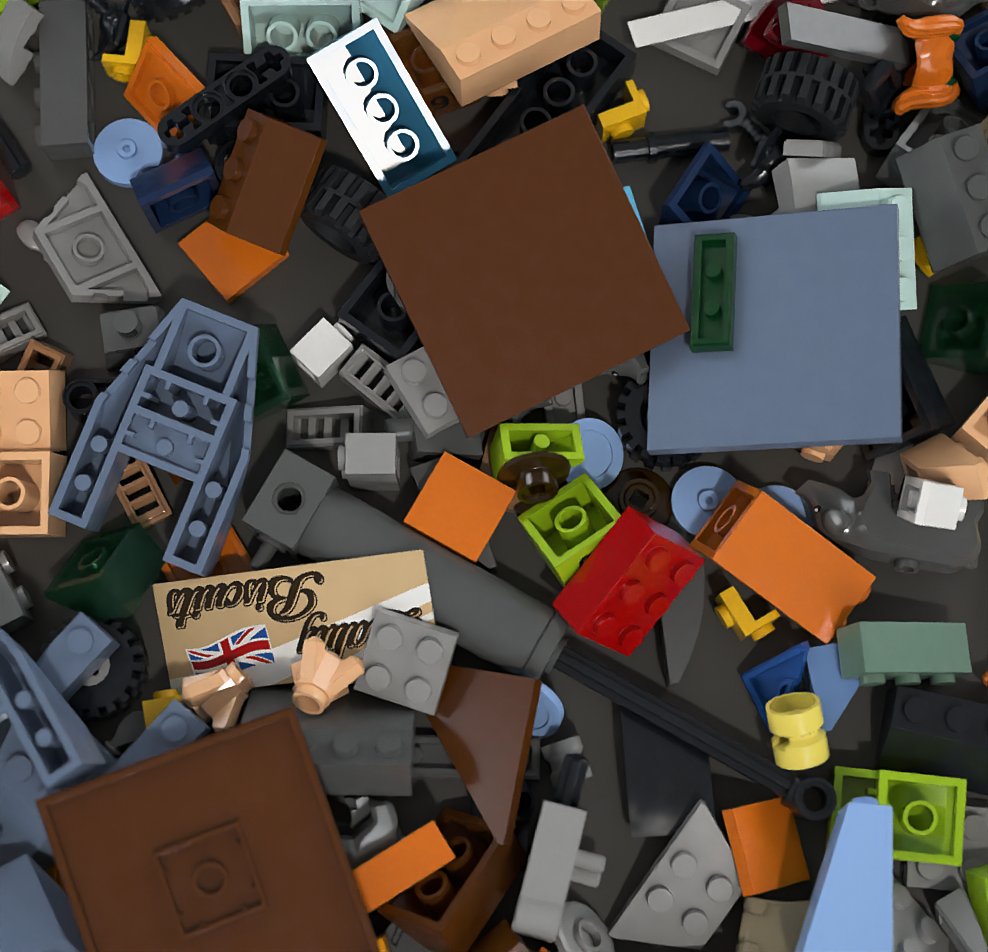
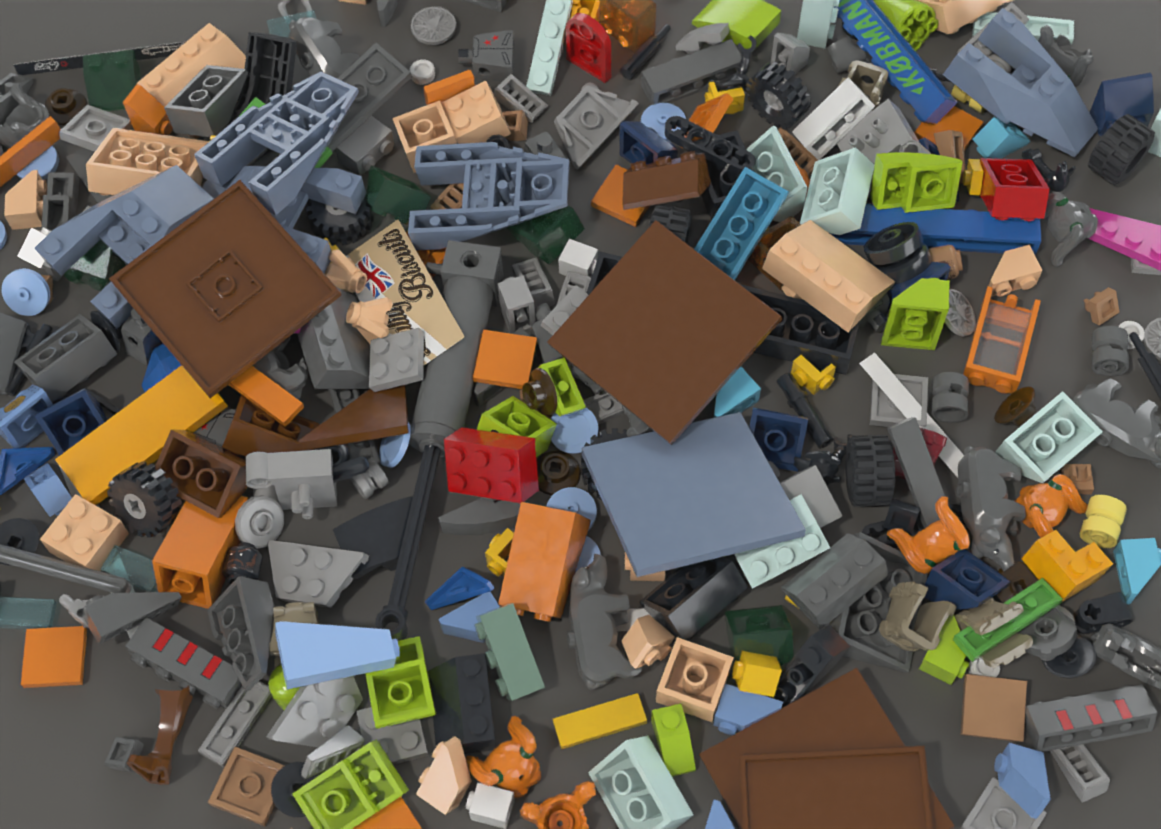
camera: 70 degrees right, 15 degrees down
(713, 292) = (702, 450): dark green tile -> none
(765, 846) = (351, 603): orange tile -> none
(796, 728) = (436, 596): light yellow wheel -> none
(811, 149) = (835, 488): light grey tile -> none
(931, 503) = (609, 622): white slope -> none

